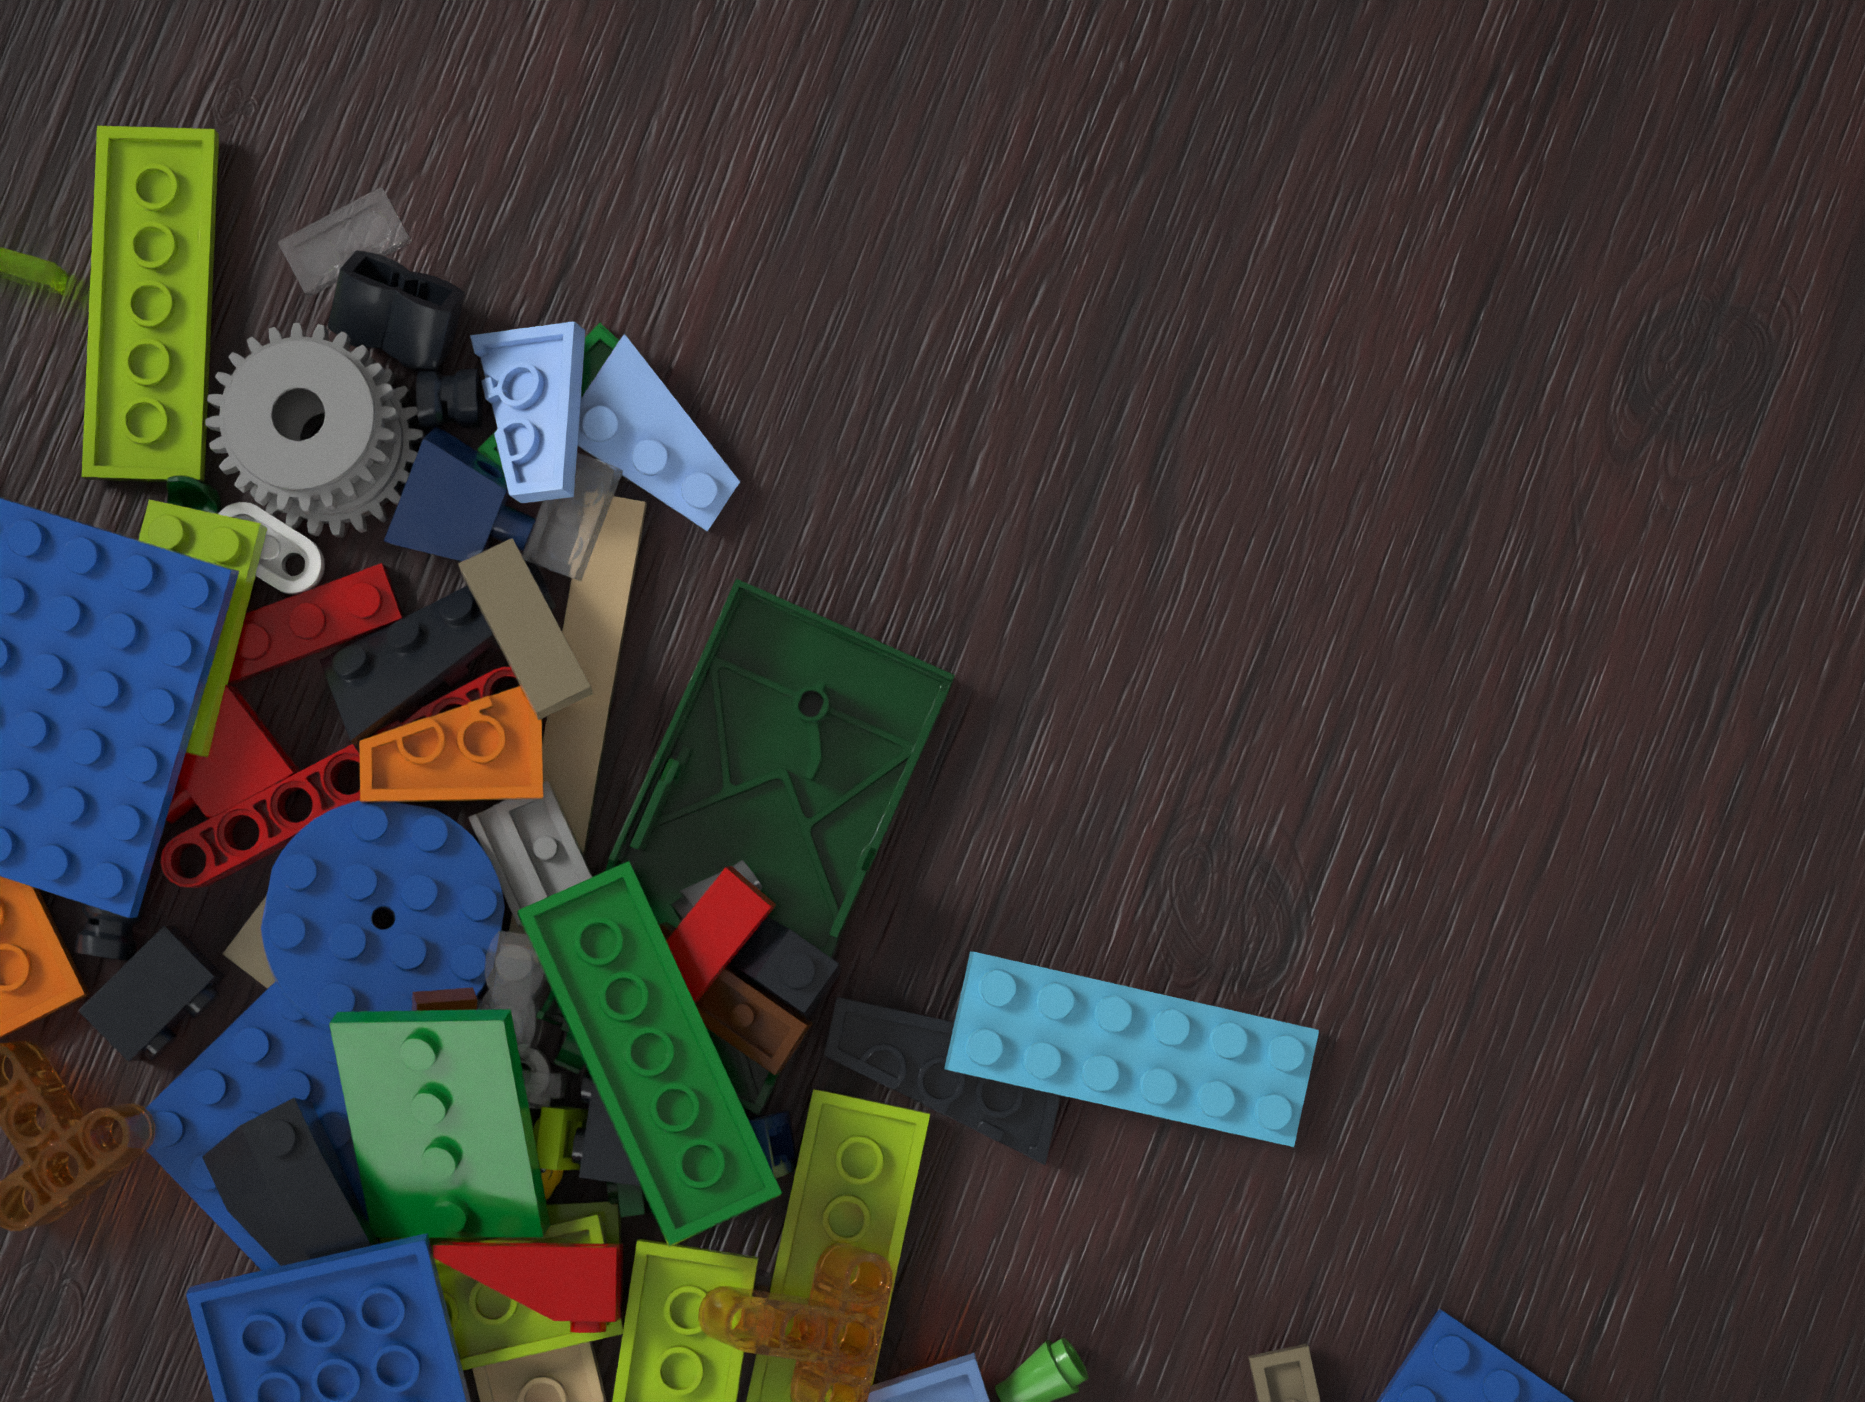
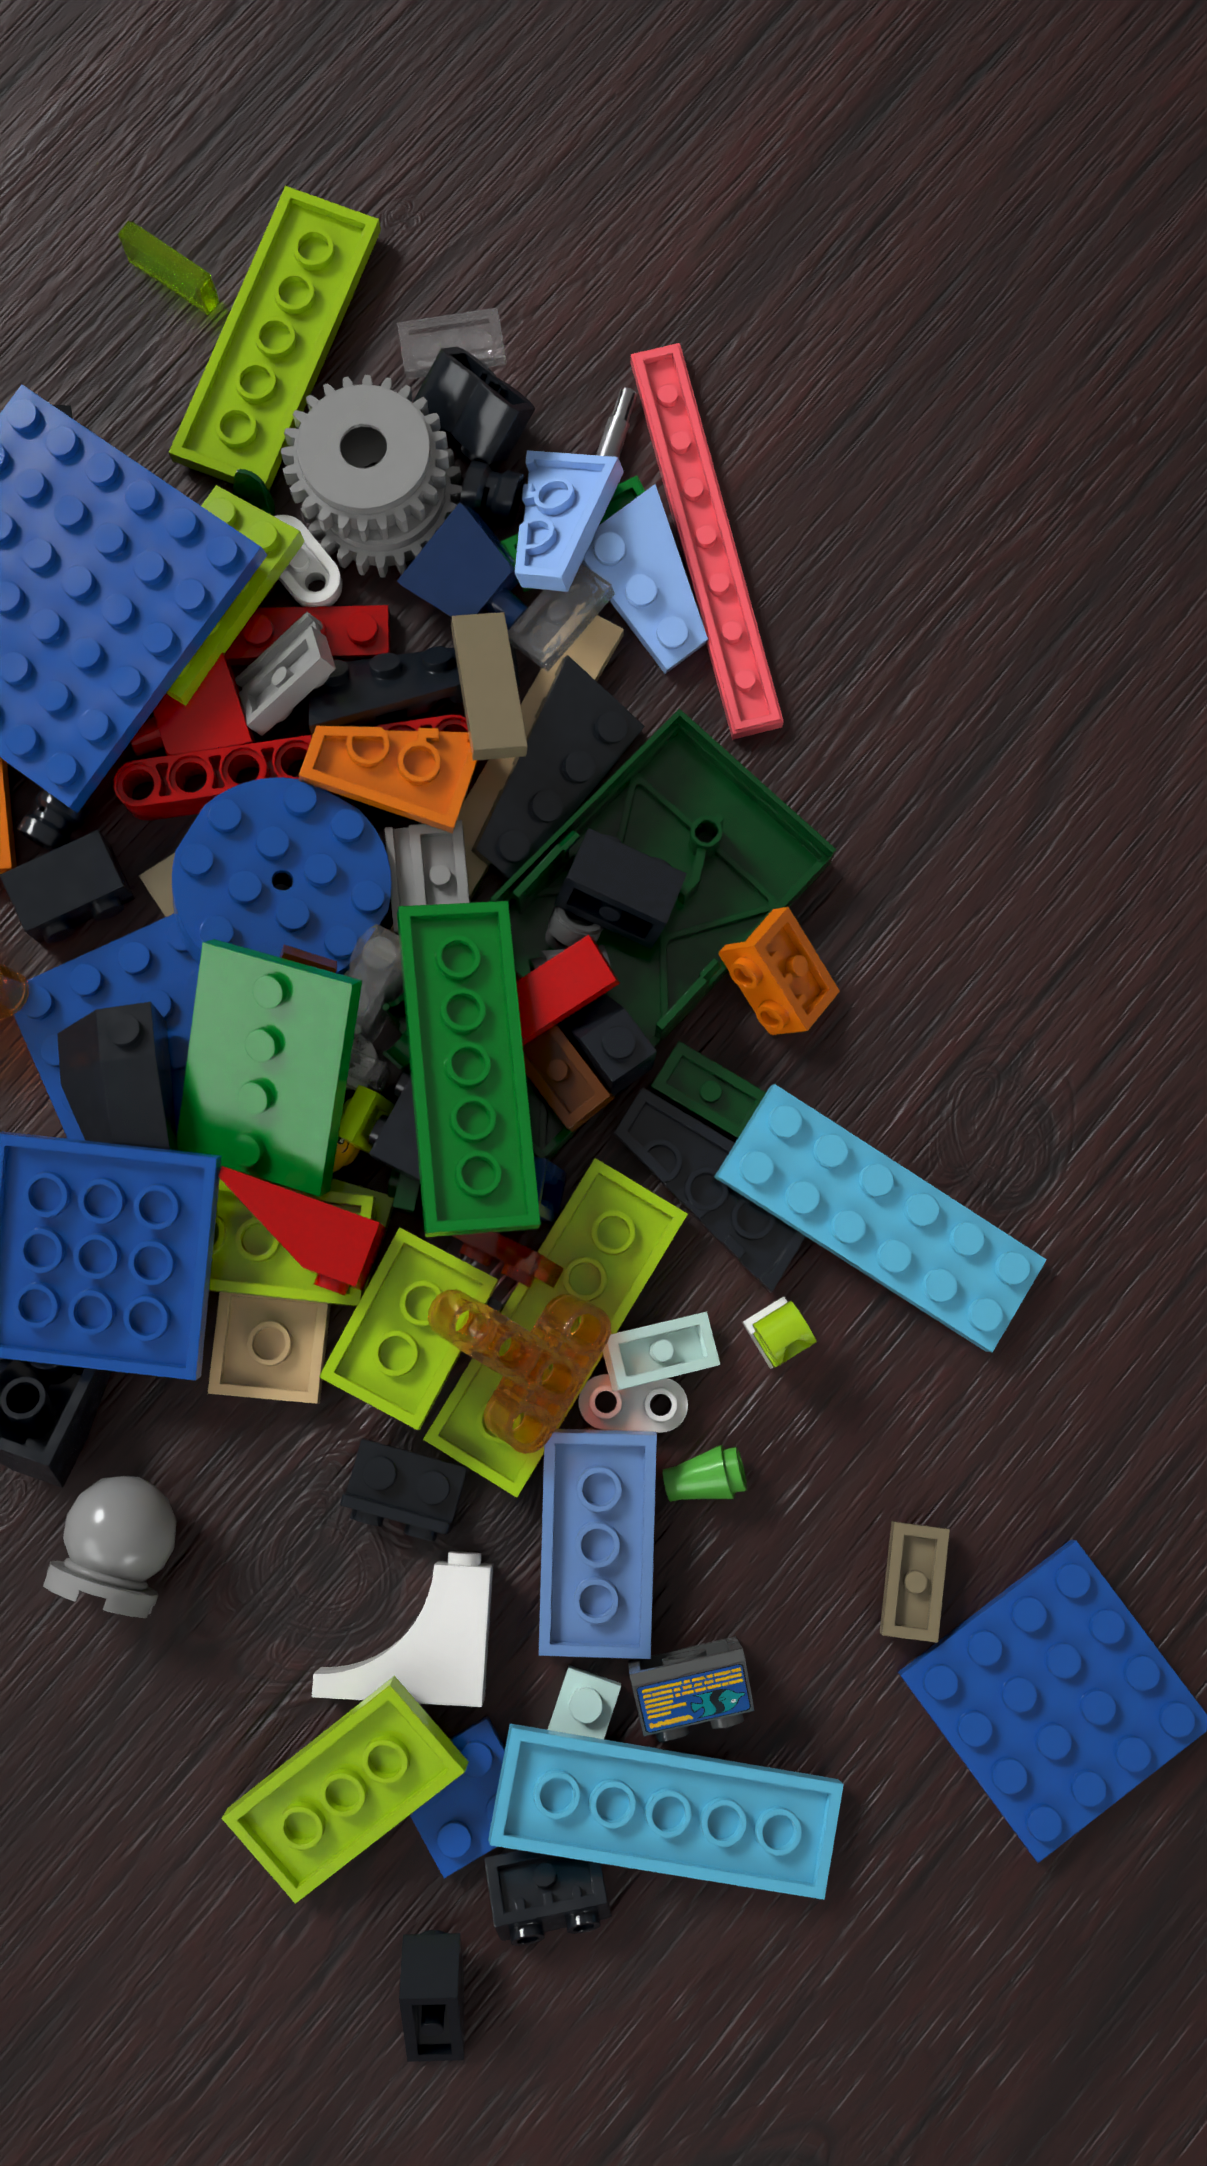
camera: 15 degrees right, 5 degrees down
(301, 685) = (285, 674): none -> light grey plate
(559, 277) = (617, 424): none -> flat silver pin
(633, 663) = (569, 751): none -> black wing
(699, 366) = (706, 541): none -> coral tile
(705, 851) = (567, 929): none -> dark grey tile
(741, 798) = (620, 888): none -> black brick
(774, 1229) = (520, 1262): none -> clear red plate
(907, 975) = (707, 1090): none -> dark green plate
(940, 1327) = (633, 1406): none -> white plate
(942, 827) = (780, 974): none -> orange bracket
(950, 1267) = (660, 1351): none -> light aqua plate
(1066, 1204) = (779, 1332): none -> lime leg

